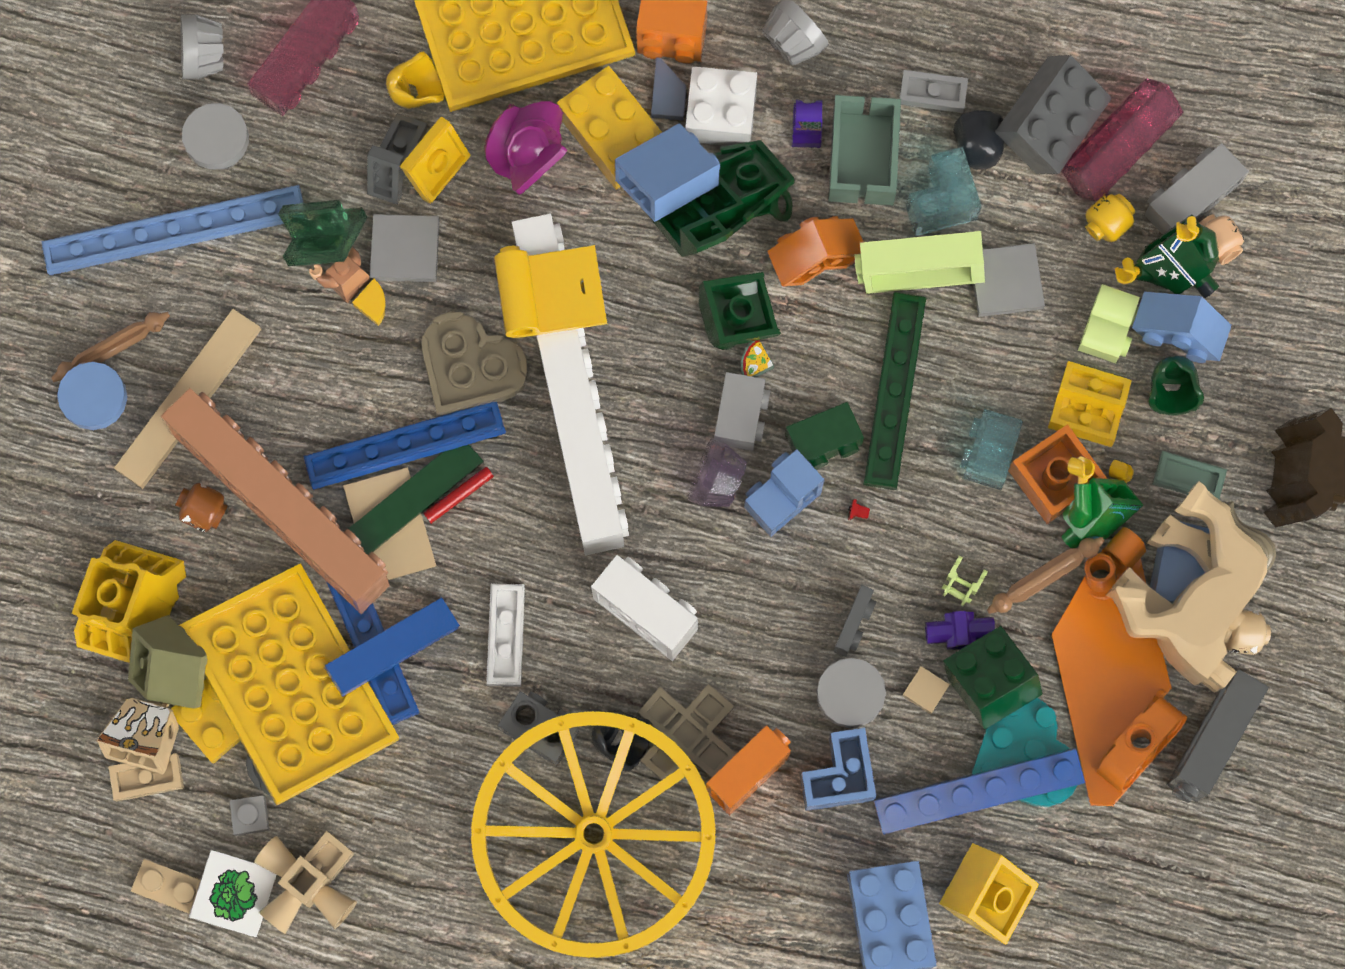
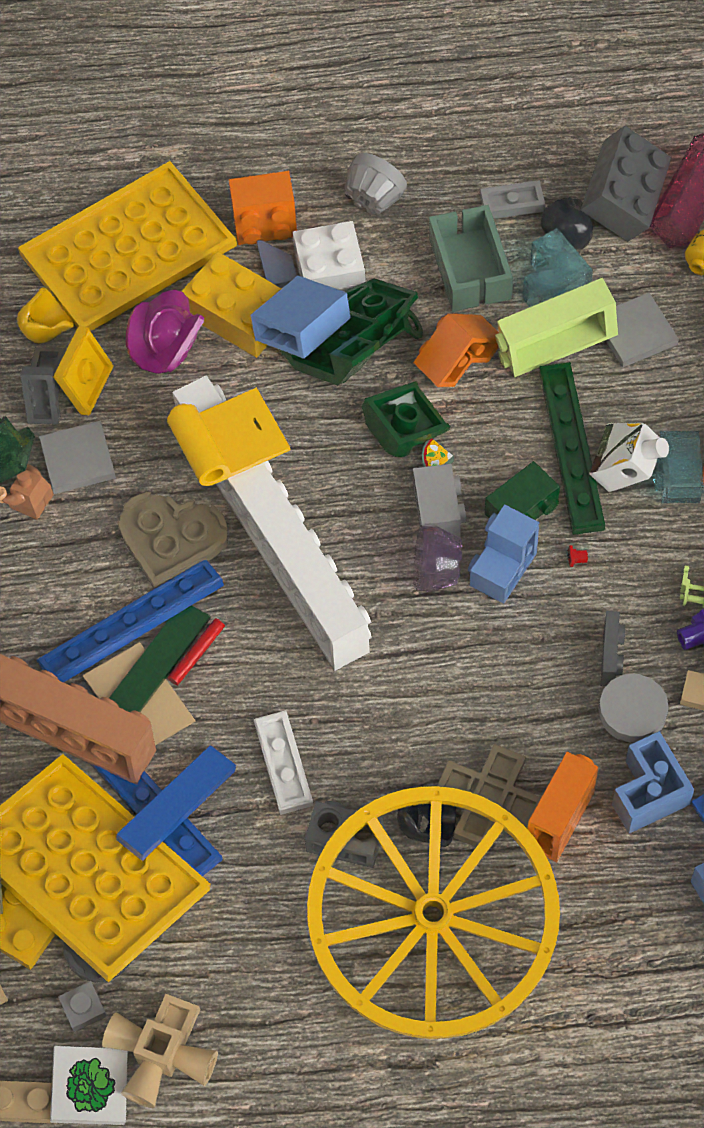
camera: 15 degrees left, 15 degrees down
(371, 302) = (60, 511): yellow tile -> none
(645, 606) = (410, 690): white brick -> none
(807, 124) = (411, 251): dark purple leg -> none
(942, 423) = (627, 455): none -> white torso

